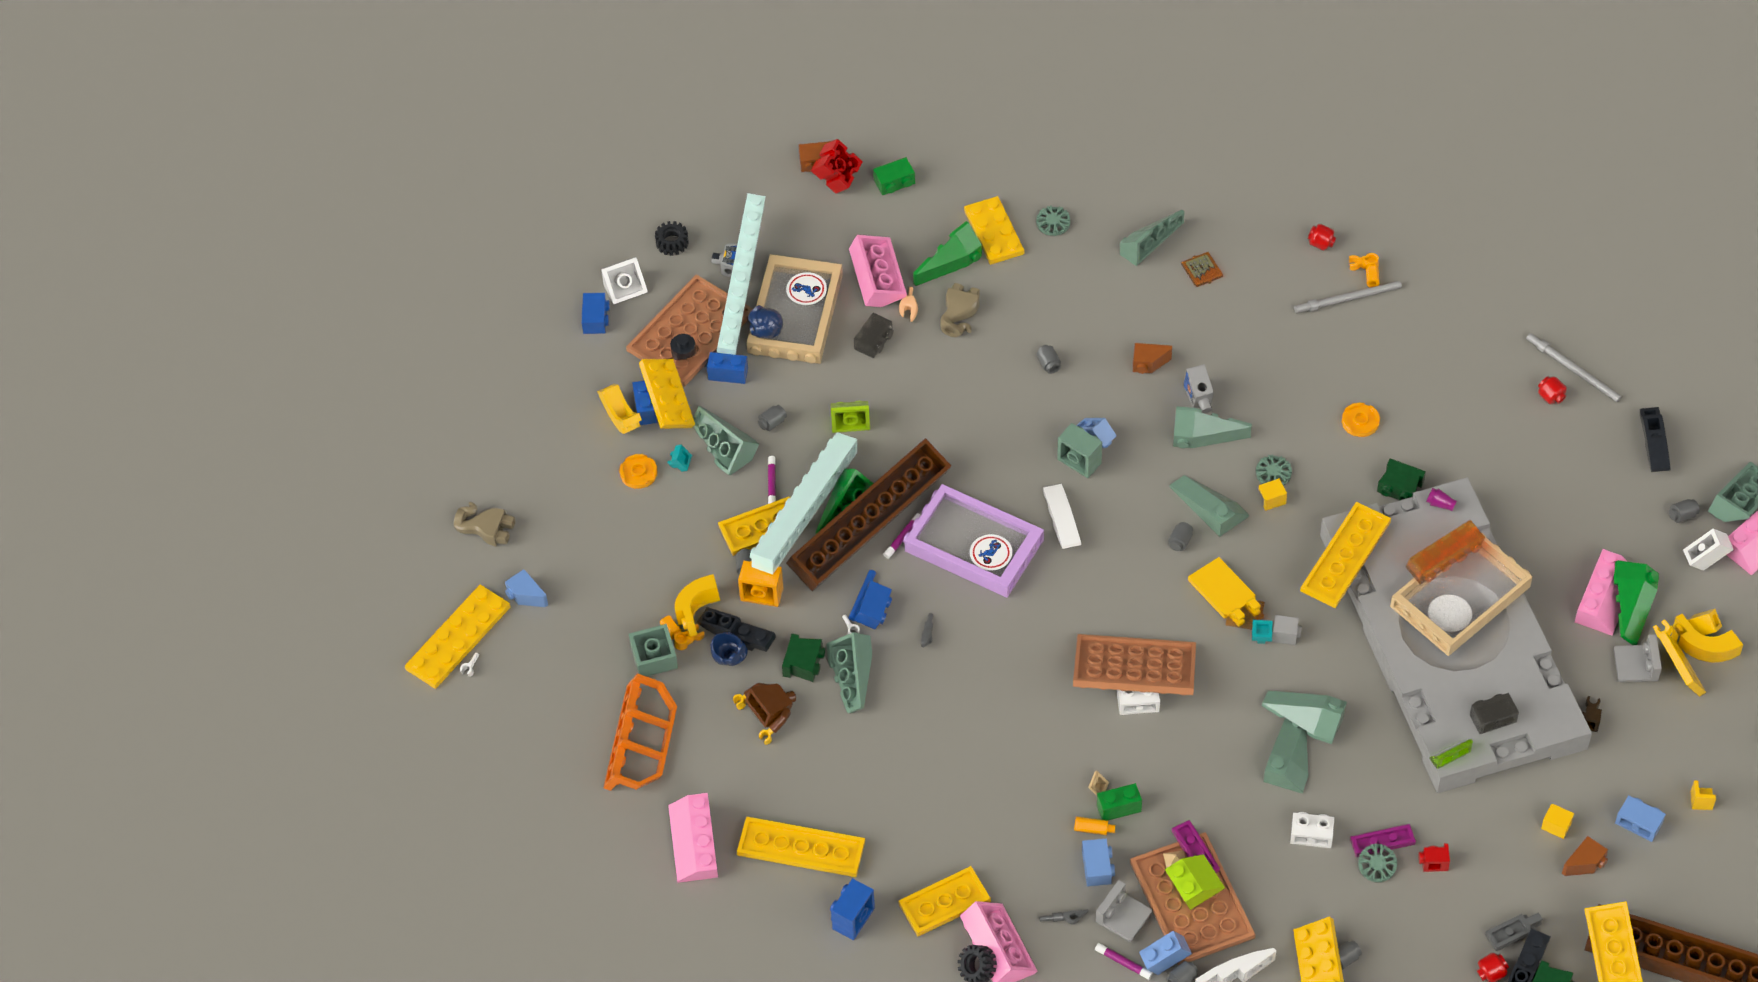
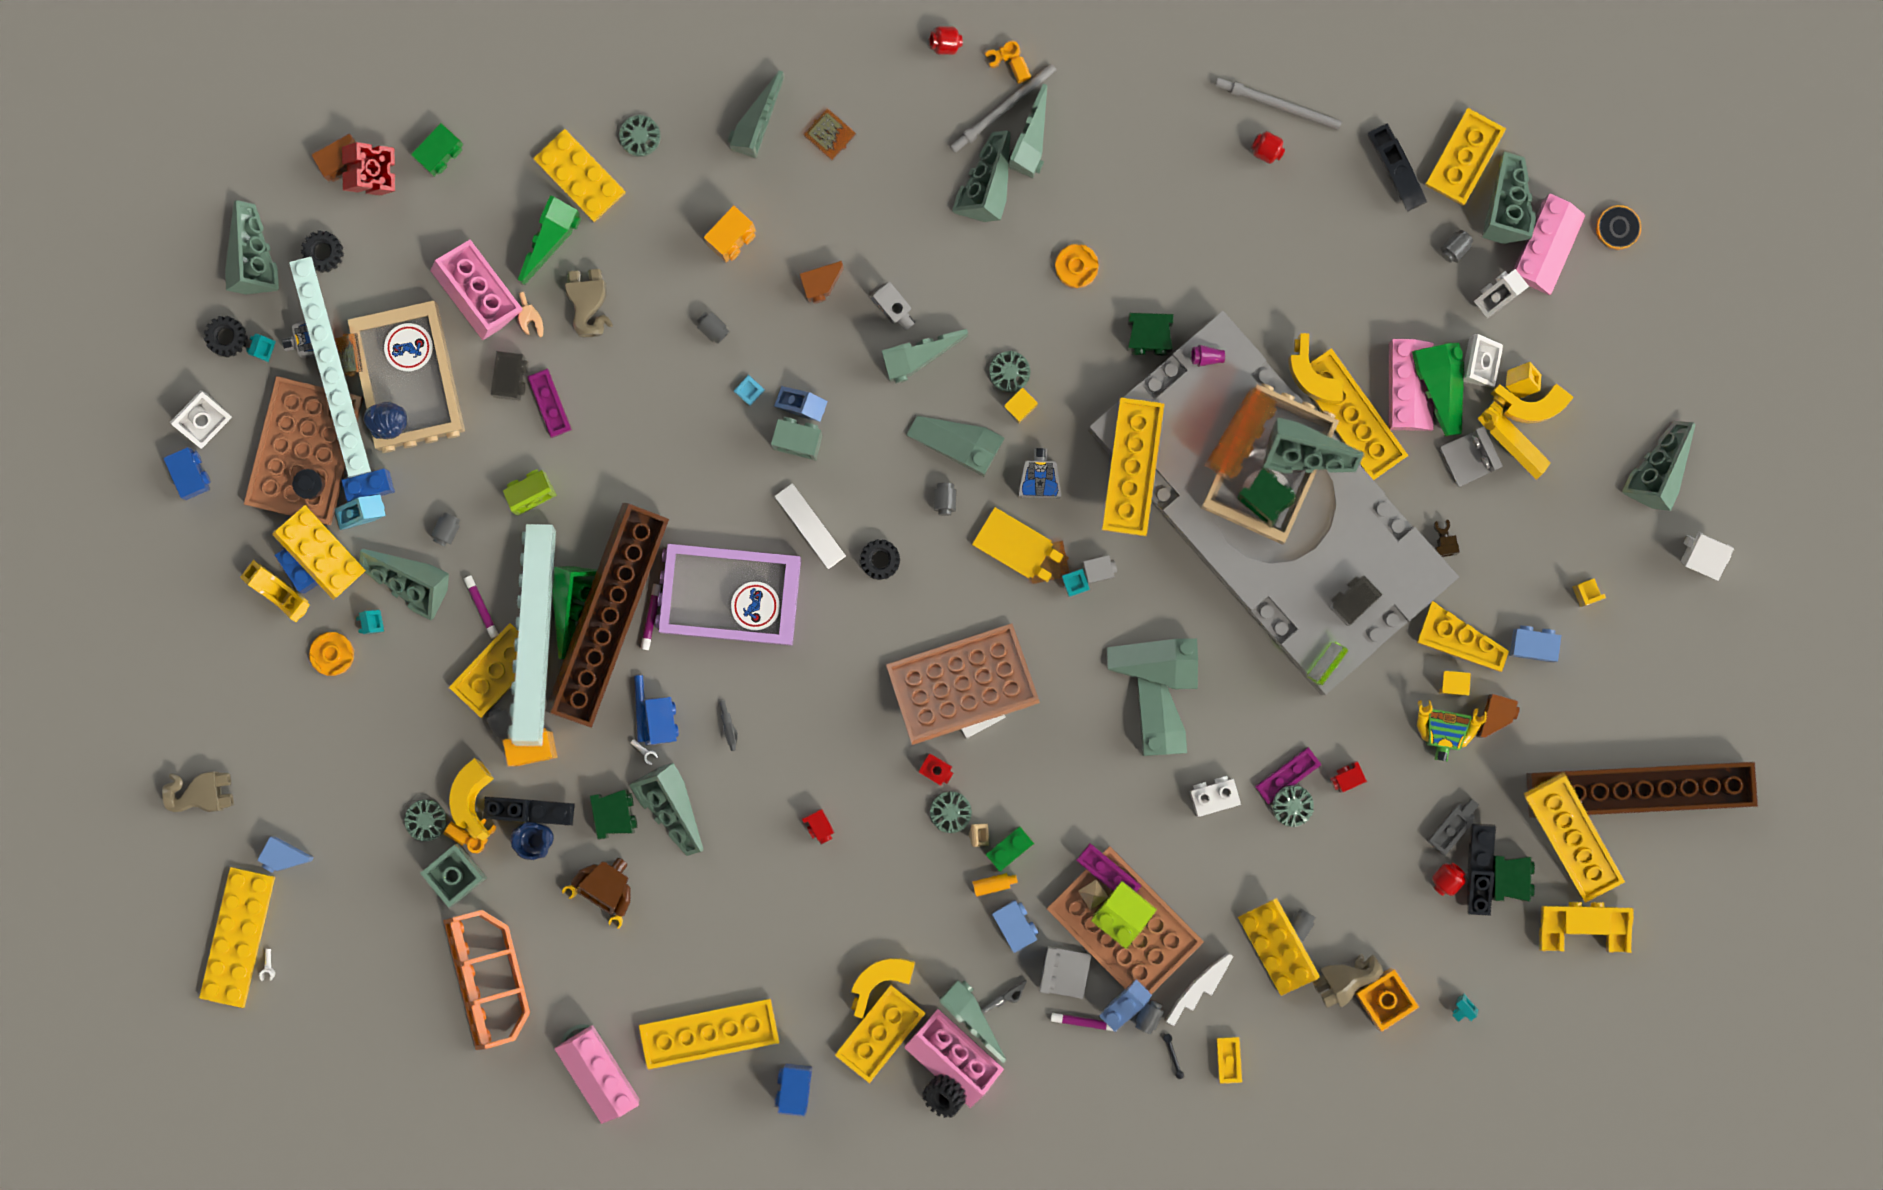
camera: 25 degrees left, 30 degrees up
(649, 609) = (425, 820): none -> sand green wheel
(694, 253) = (261, 347): none -> teal tile
(712, 382) = (360, 511): none -> medium azure slope
(716, 195) = (248, 257): none -> sand green wedge
(759, 277) = (349, 353): none -> piece
(779, 217) = (335, 247): none -> black tyre
(895, 366) = (549, 403): none -> magenta tile
(964, 854) = (882, 970): none -> yellow arch
(967, 727) = (819, 826): none -> red brick
(1025, 905) = (965, 1009): none -> sand green wedge
(1057, 412) = (749, 390): none -> medium azure tile
(1077, 721) = (927, 770): none -> red brick
(1081, 761) = (950, 812): none -> sand green wheel
(1092, 299) = (730, 234): none -> light orange brick
(1107, 569) = (870, 569): none -> black tyre
(1264, 549) = (1040, 477): none -> torso
(1312, 340) = (987, 188): none -> sand green wedge
(1358, 320) = (1029, 147): none -> wedge
(1448, 605) = (1267, 497): none -> dark green hips
(1494, 582) = (1302, 448): none -> sand green wedge
(1522, 554) = (1313, 385): none -> yellow arch
(1536, 852) = (1447, 729): none -> torso
(1549, 597) = (1358, 420): none -> yellow plate
(1568, 786) = (1452, 636): none -> yellow wing
(1673, 596) = (1482, 361): none -> white slope
(1715, 452) = (1465, 156): none -> yellow plate

